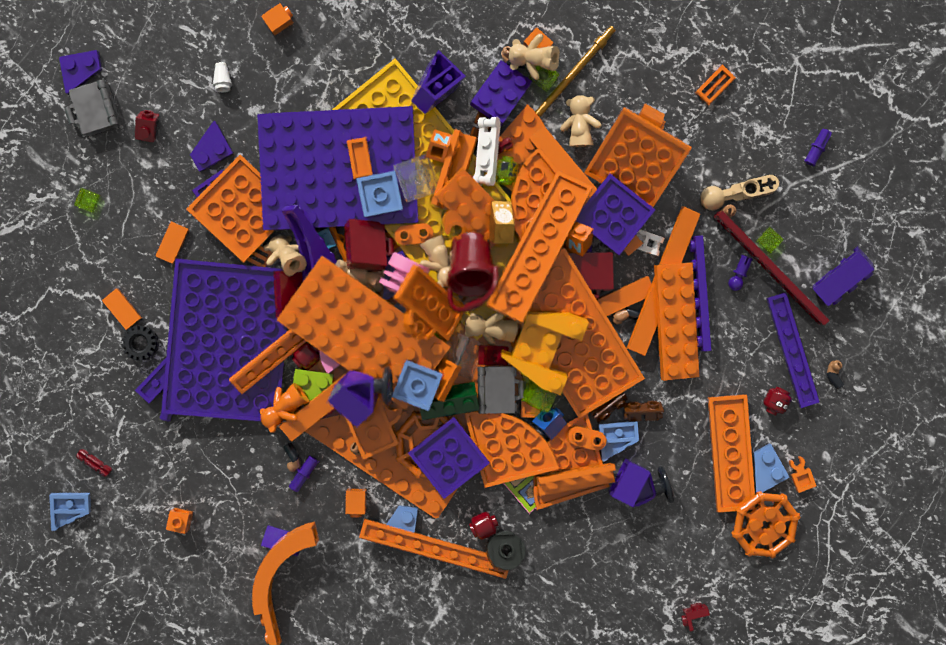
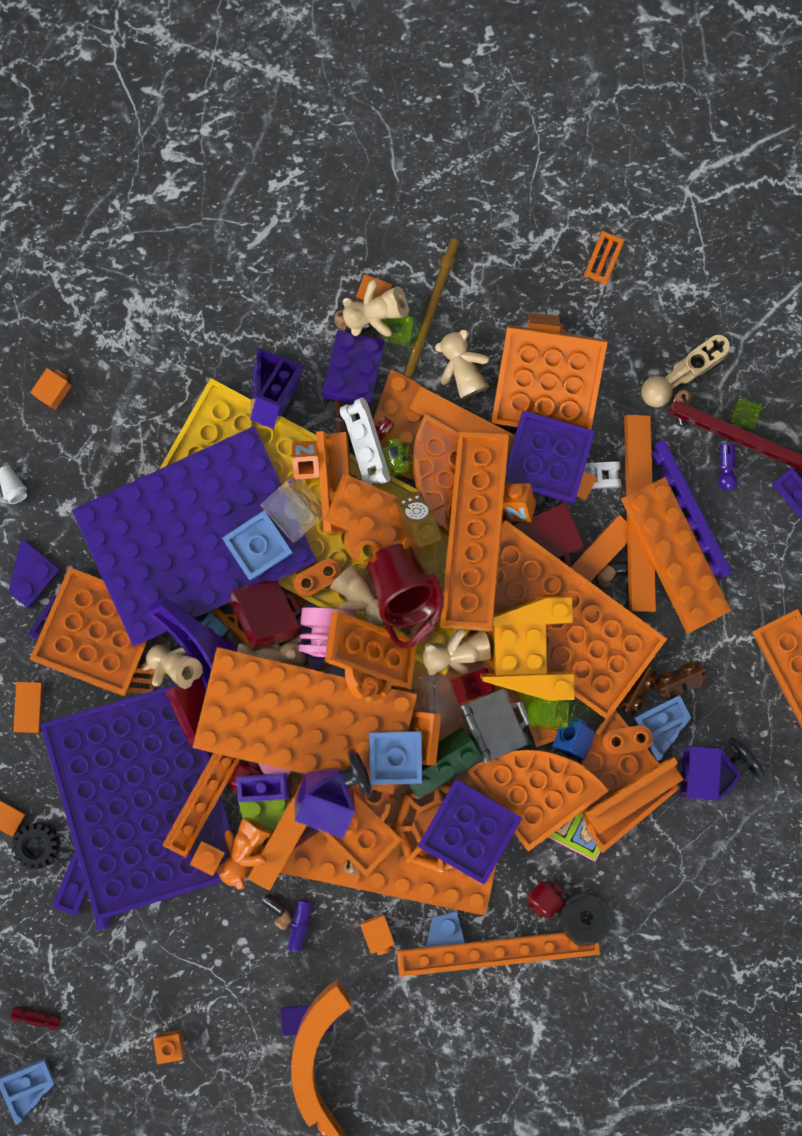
camera: 20 degrees left, 5 degrees down
(256, 401) = (207, 858): none -> orange brick
(315, 368) = (263, 787): none -> dark purple slope
(359, 158) = (215, 512): orange tile -> none
(818, 147) = (756, 281): dark purple axle -> none

